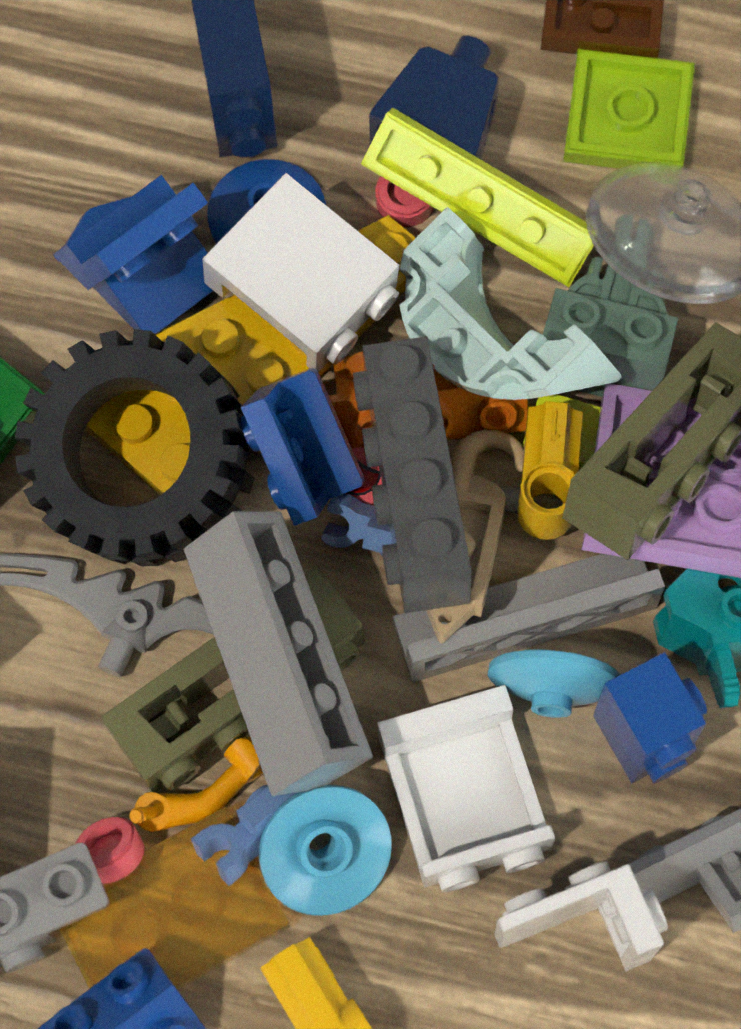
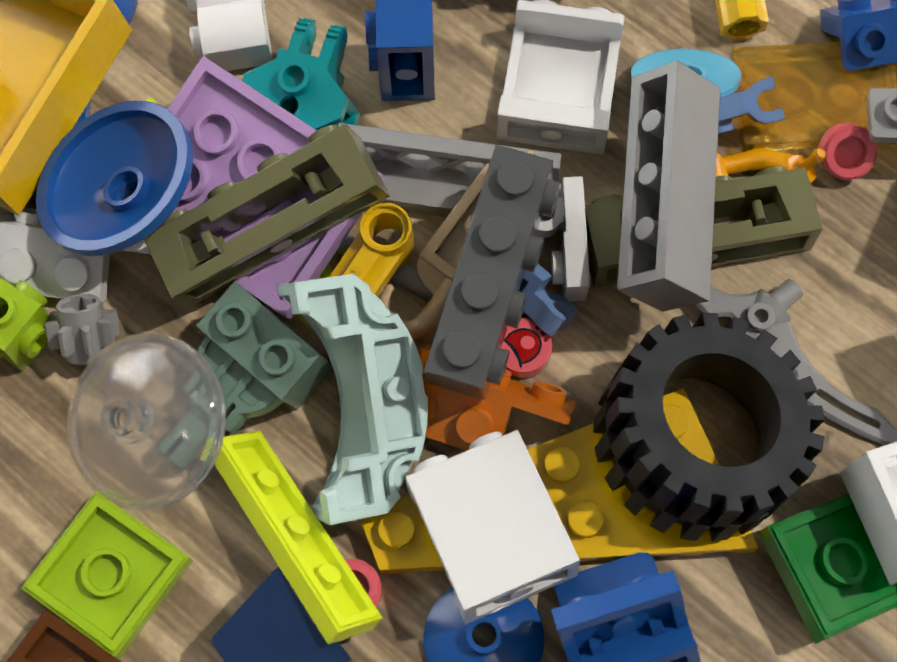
camera: 155 degrees left, 0 degrees up
(300, 444) = (571, 365): blue bracket -> none
(351, 577) = (571, 262): none -> white plate
(551, 679) = (459, 101): medium azure dish -> none

